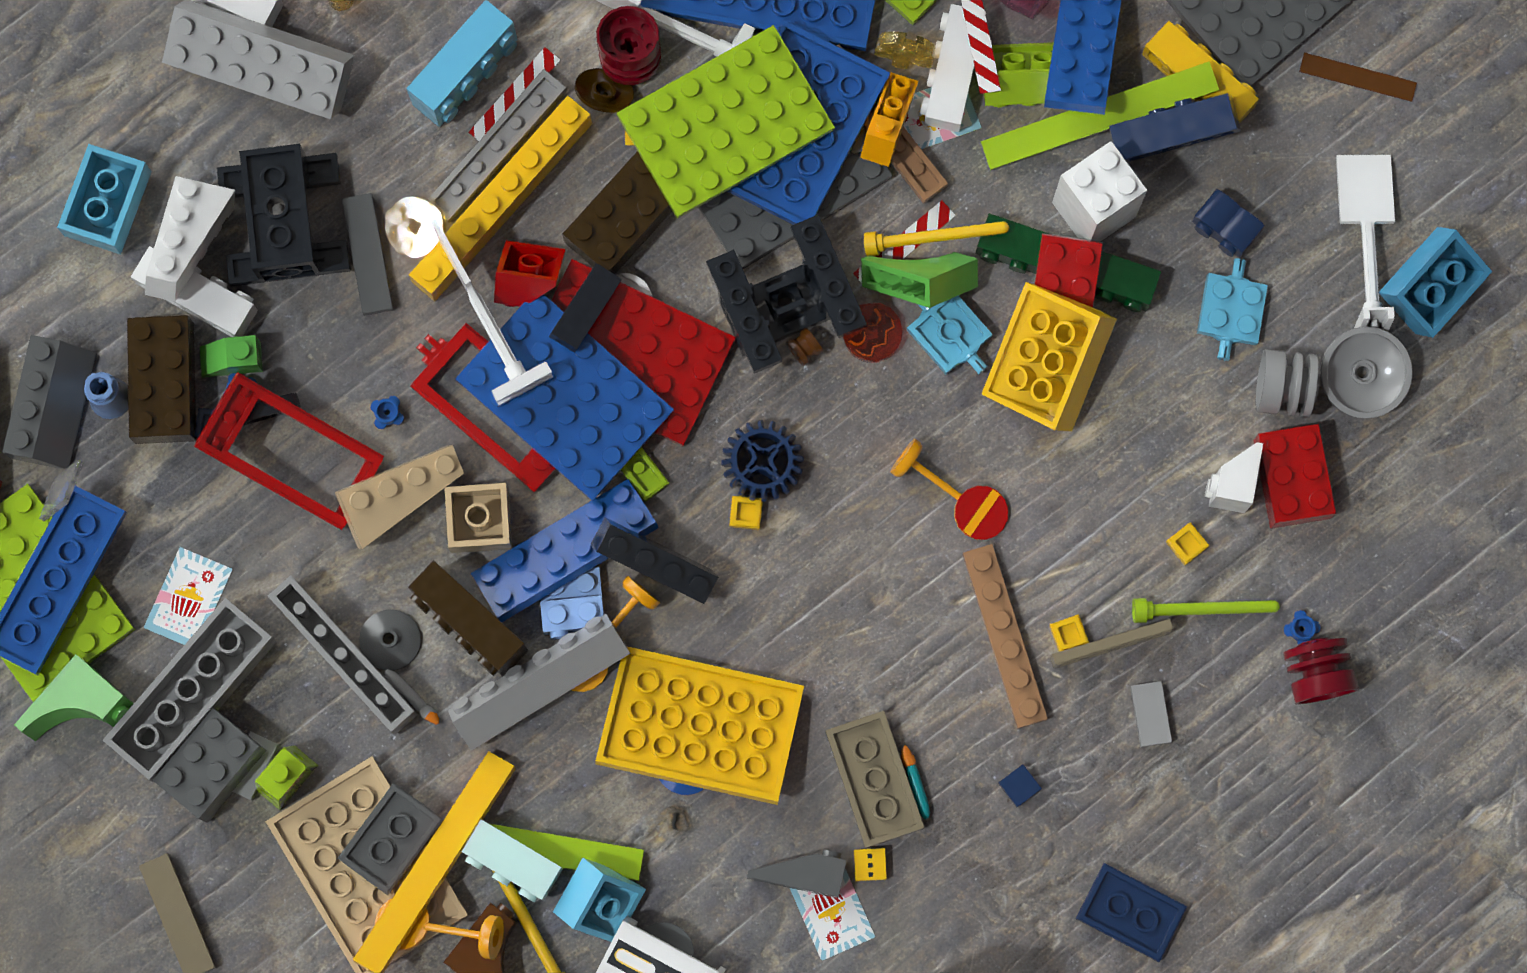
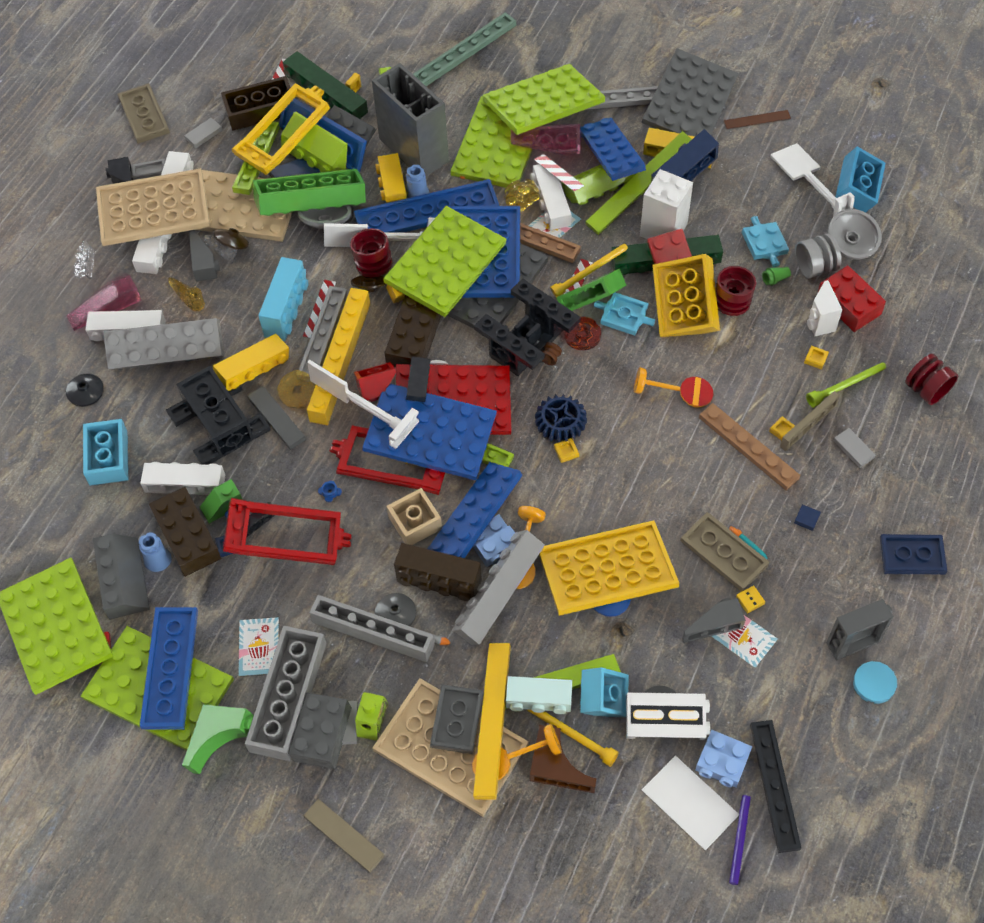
camera: 25 degrees left, 20 degrees down
(61, 490) = (150, 615): clear piece -> none
(121, 83) = (87, 395): none -> black dish
(187, 229) = (164, 443): white wedge -> none
(368, 152) = (252, 362): none -> yellow brick
(390, 496) = (355, 527): tan wedge -> none
(654, 560) = (530, 489): black brick -> none
(888, 119) = (532, 228): light orange slope -> none
(1136, 366) = (735, 290): none -> dark red wheel
(1210, 378) = (775, 275): none -> bright green cone
(1227, 224) = (737, 203): dark blue brick -> none
(1301, 619) = (904, 364): blue plate -> none

